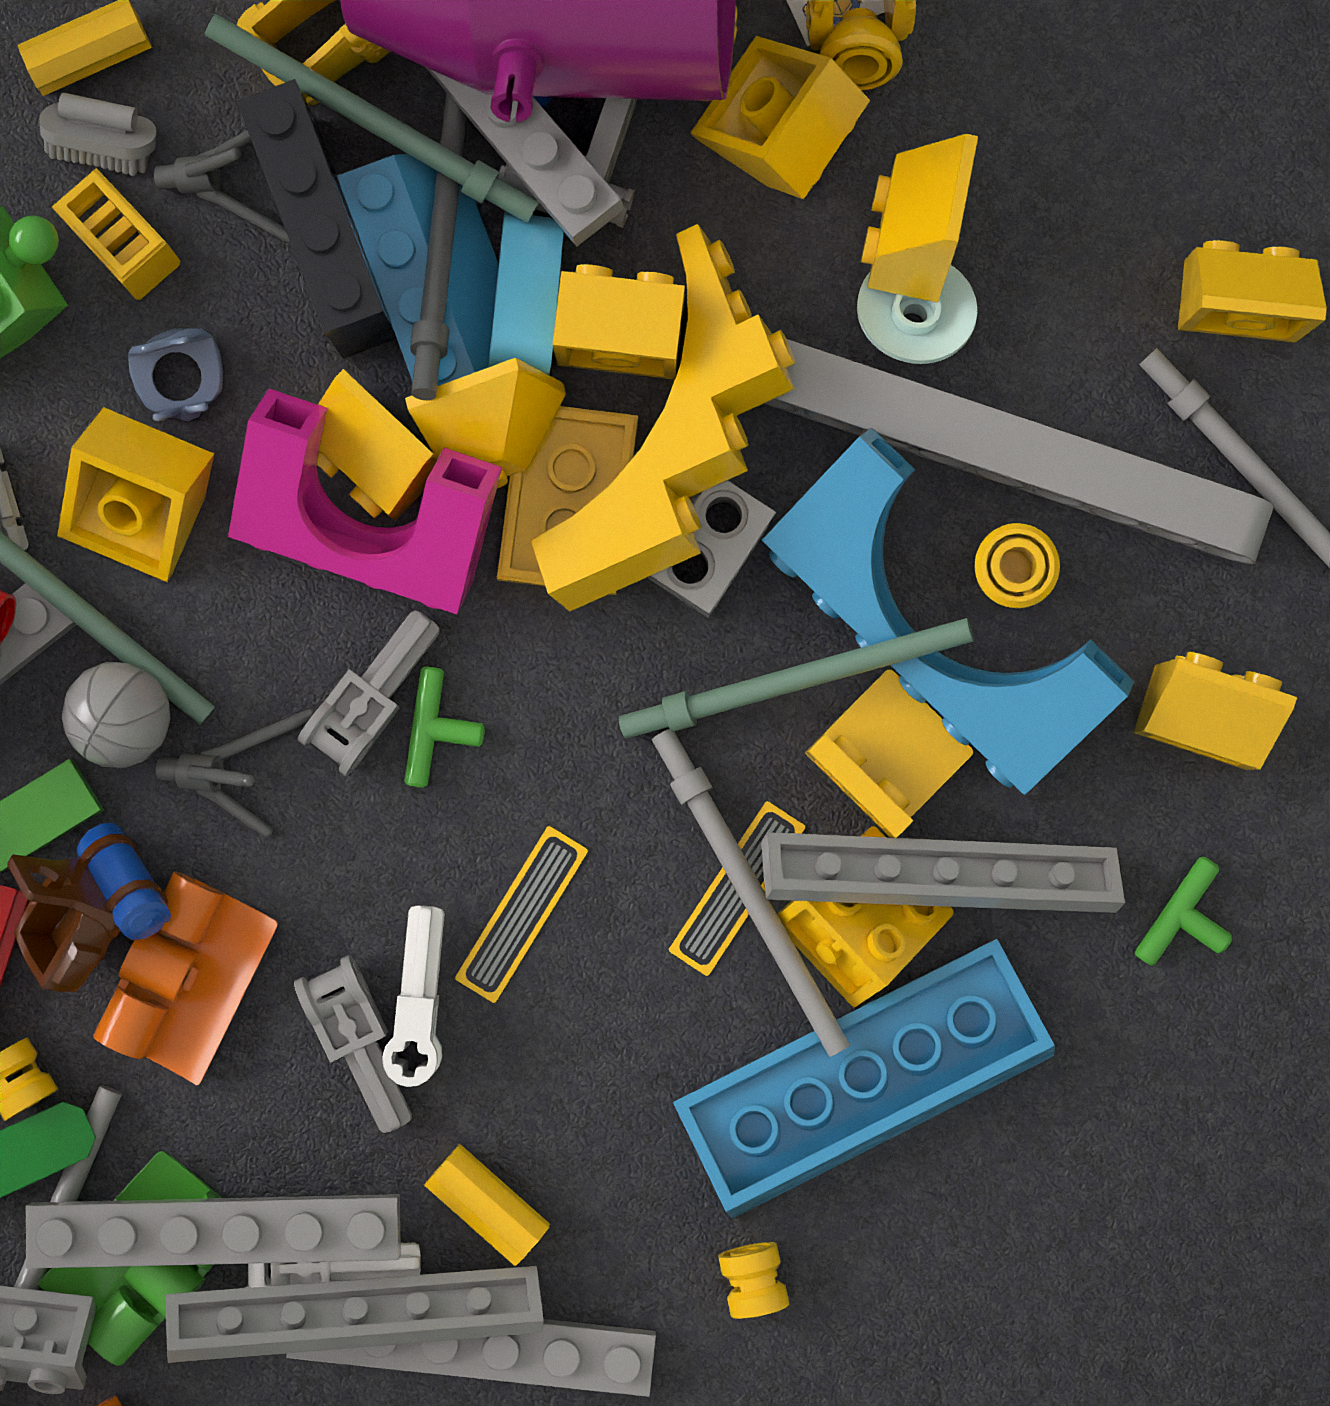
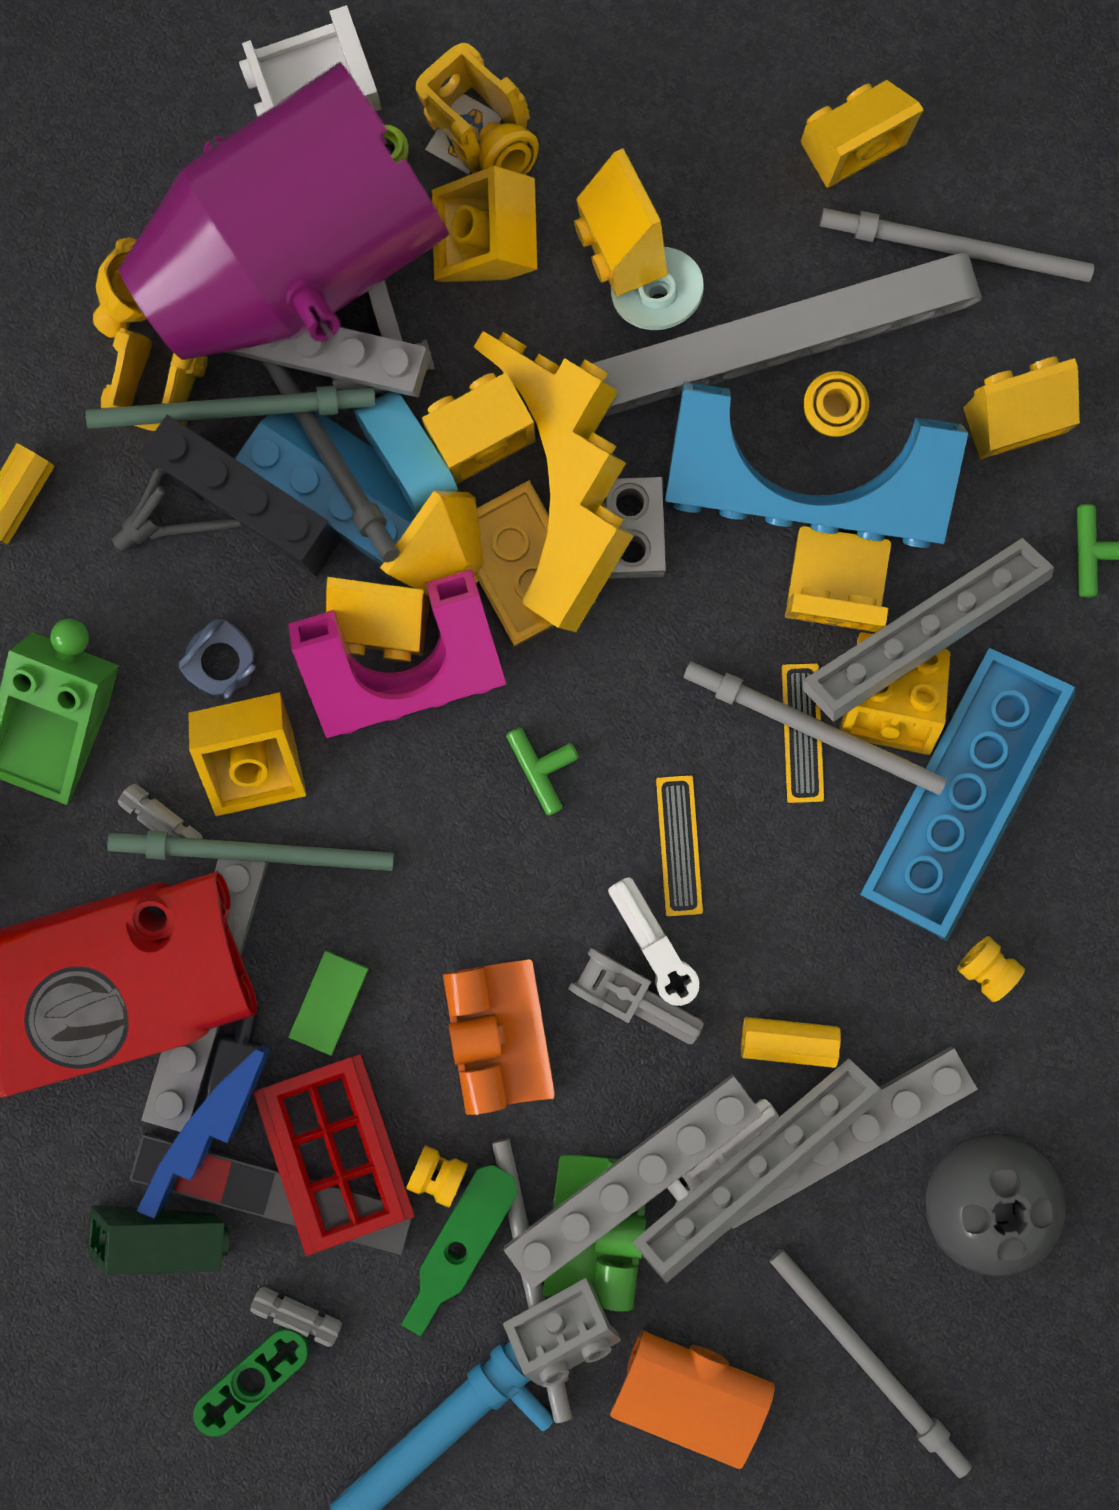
camera: 35 degrees left, 0 degrees up
(84, 906) = (404, 1035): reddish brown piece -> none
(97, 134) = (59, 544): light grey piece -> none
(116, 714) = (336, 900): light grey piece -> none
(143, 261) = (146, 602): yellow slope -> none
(206, 770) = (417, 898): dark grey plant -> none
(362, 705) = (486, 784): light grey connector -> none
(682, 710) = (690, 644): sand green bar -> none

